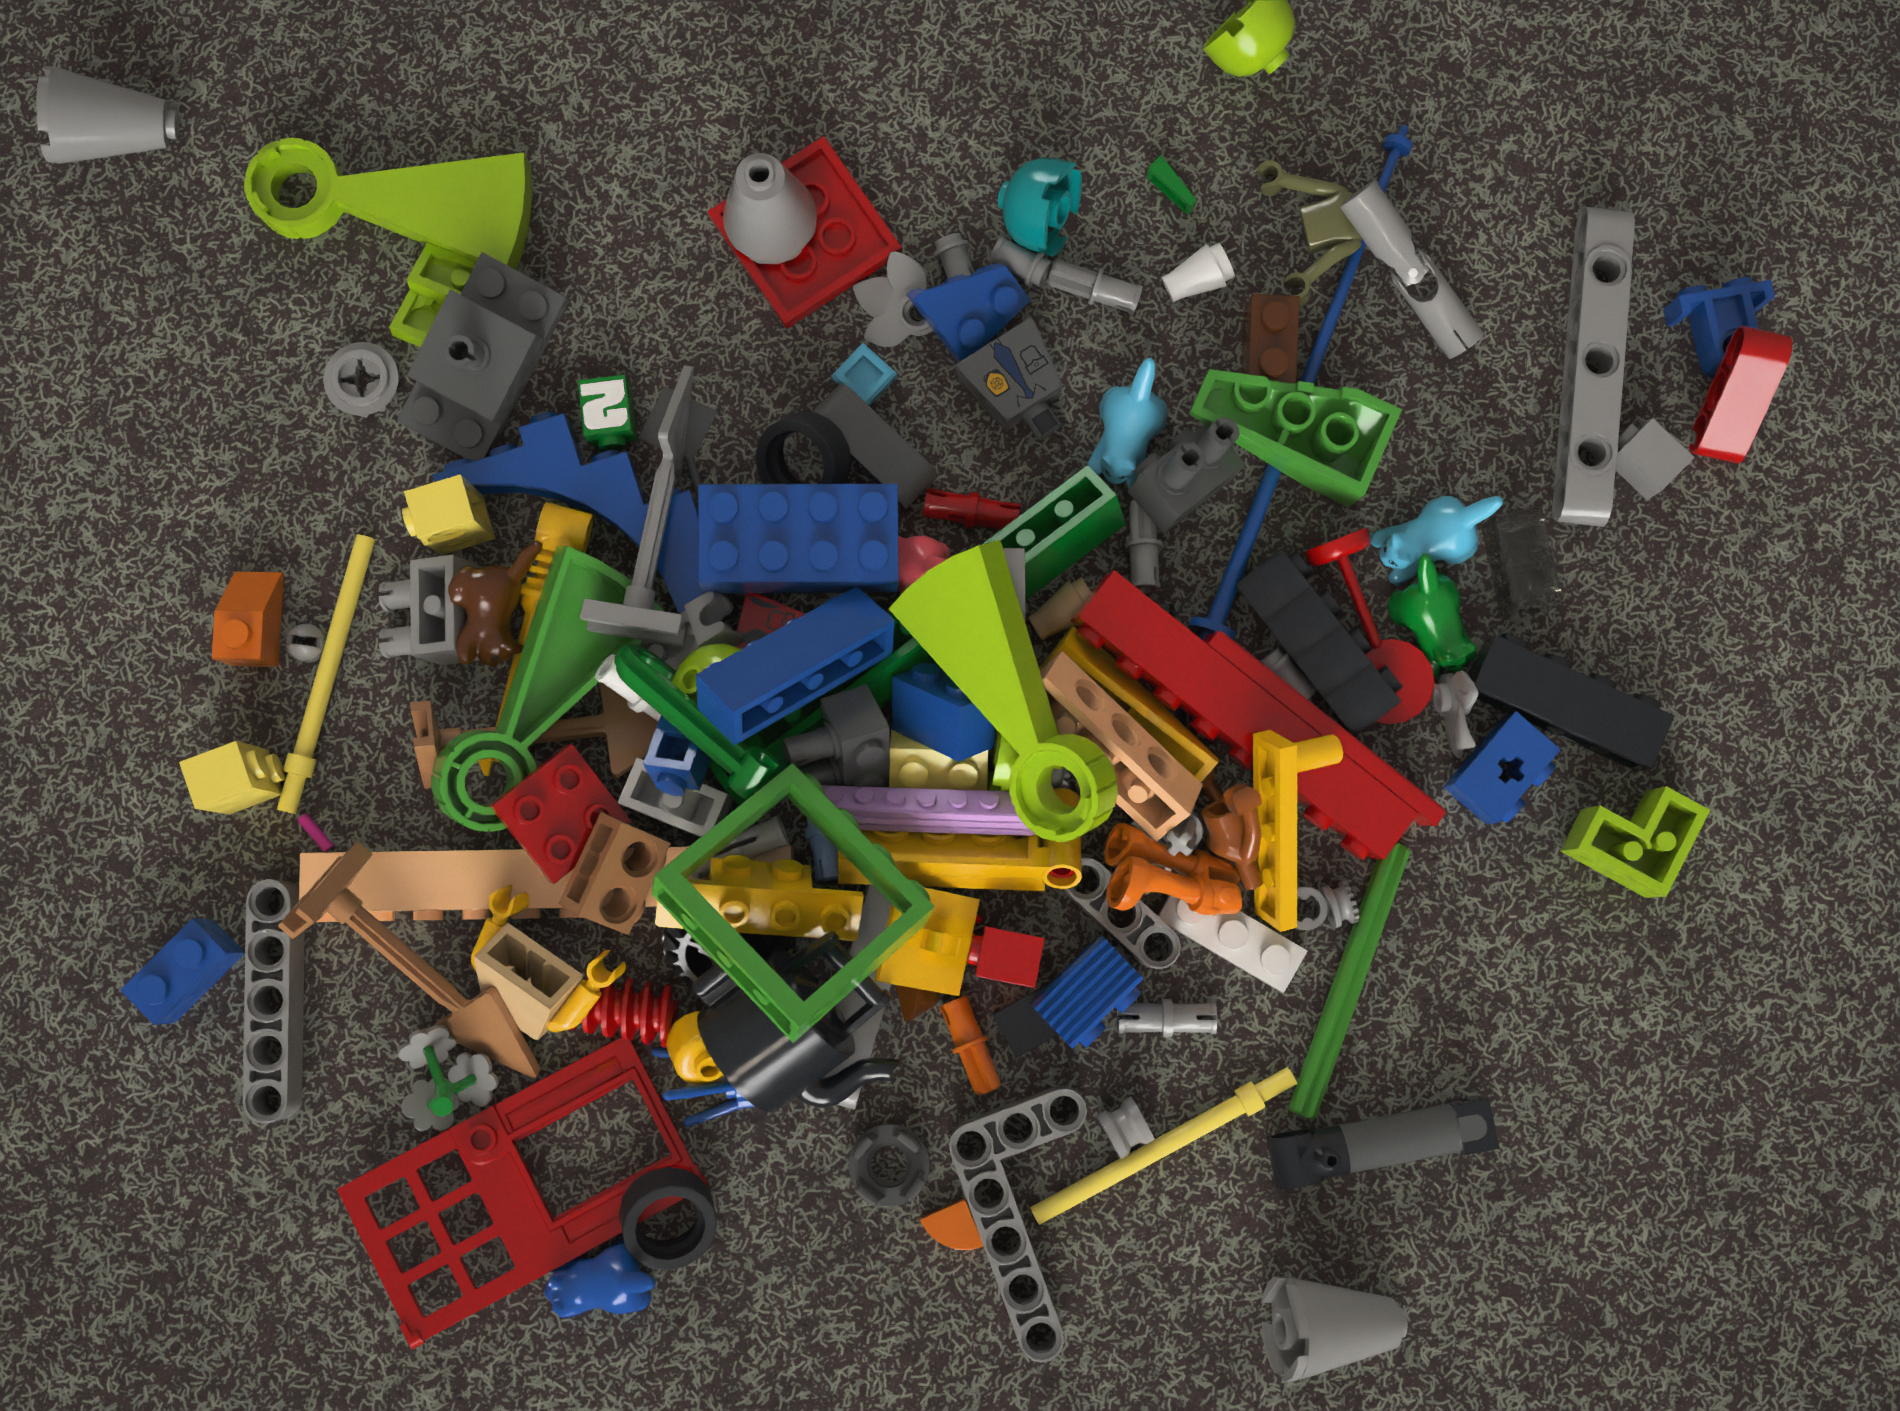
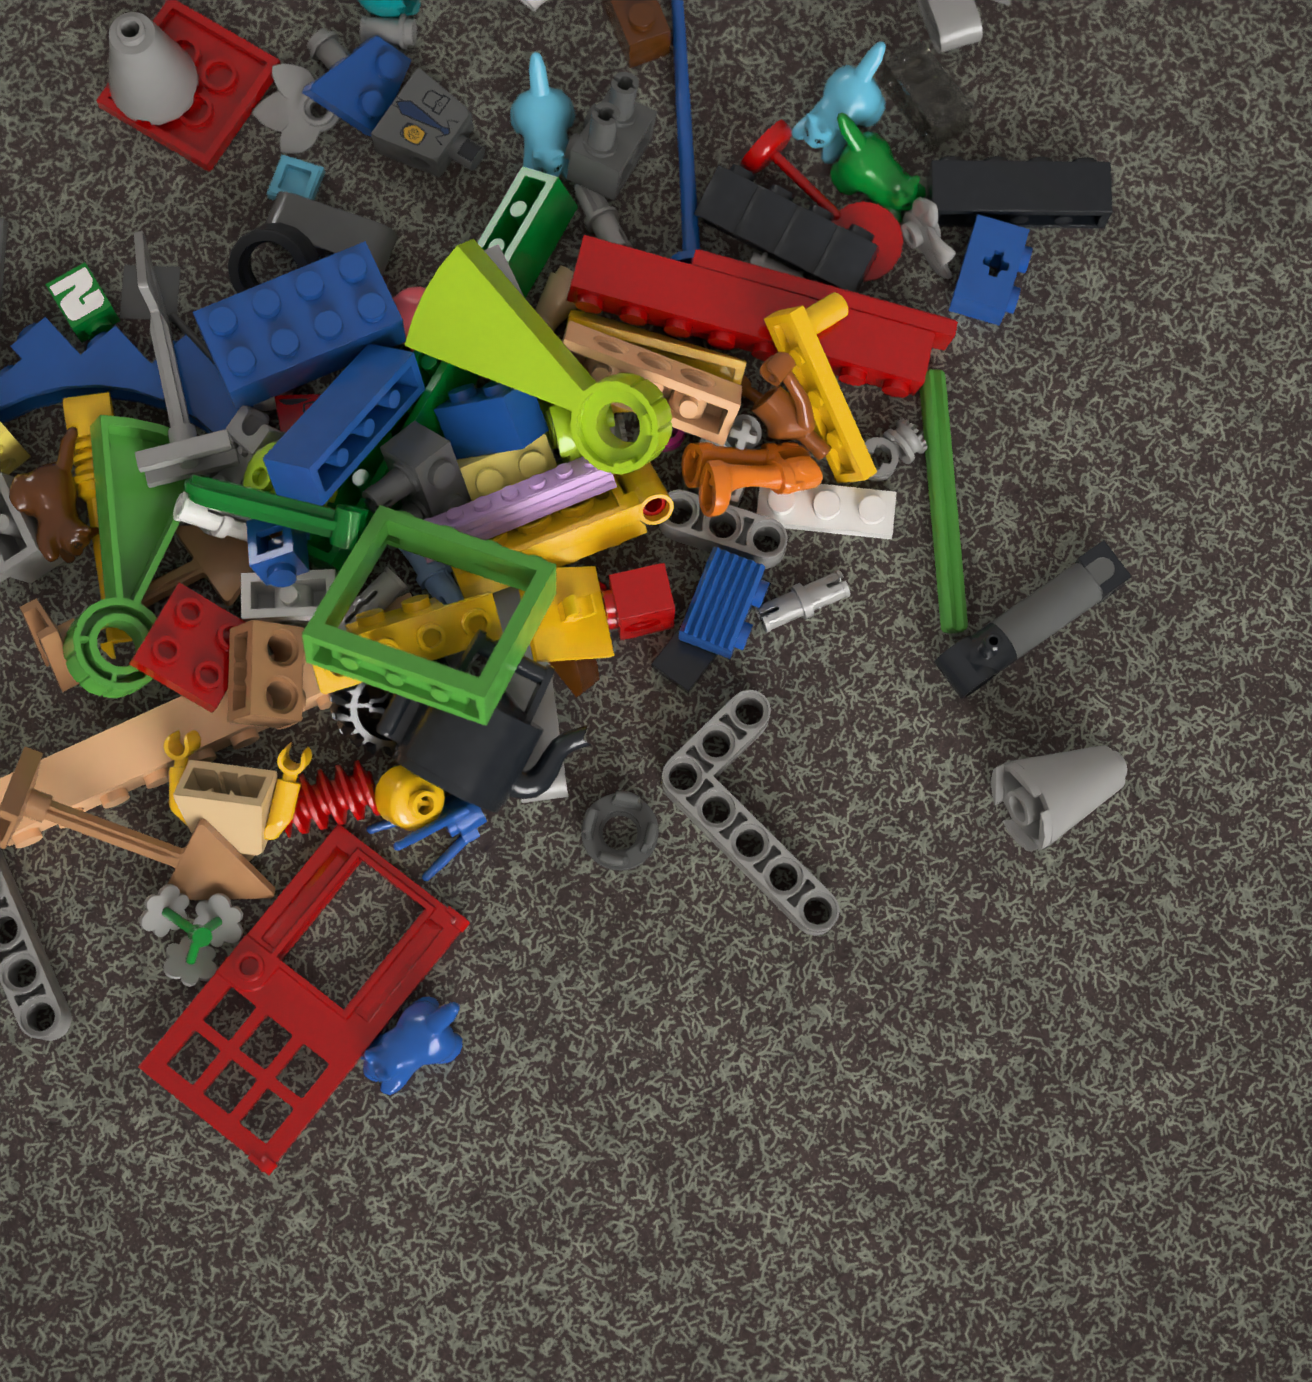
camera: 25 degrees left, 5 degrees down
(675, 1251) = (480, 965): black tyre -> none
(953, 1226) = (700, 858): orange tile -> none
(969, 509) = (429, 254): red pin -> none
(970, 1045) = (643, 697): orange axle -> none
(1094, 286) = (462, 24): light grey axle -> none
(1125, 1127) = (809, 705): light grey wheel -> none
(1247, 1100) = (902, 639): light yellow bar -> none
(1305, 431) = (697, 63): bright green wedge -> none
(1642, 851) = (1135, 285): lime brick -> none

